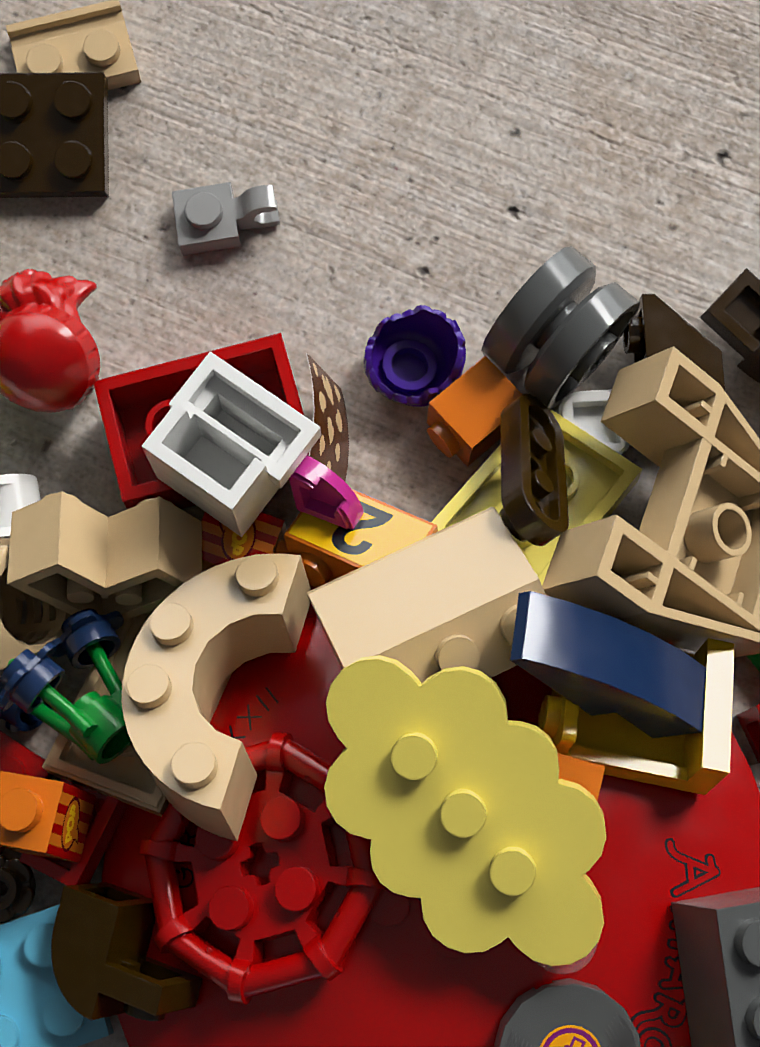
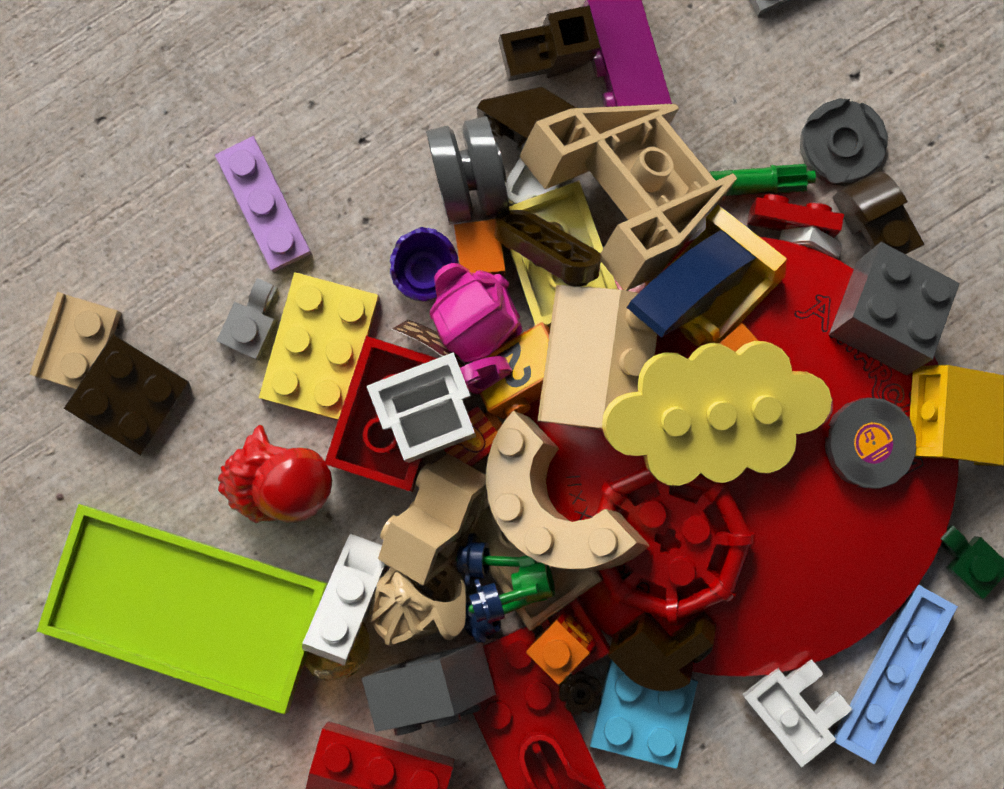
camera: 55 degrees left, 10 degrees up
(243, 297) = (318, 345): none -> light yellow plate
(364, 149) = (263, 204): none -> lavender plate
(396, 441) = (473, 312): none -> dark pink piece

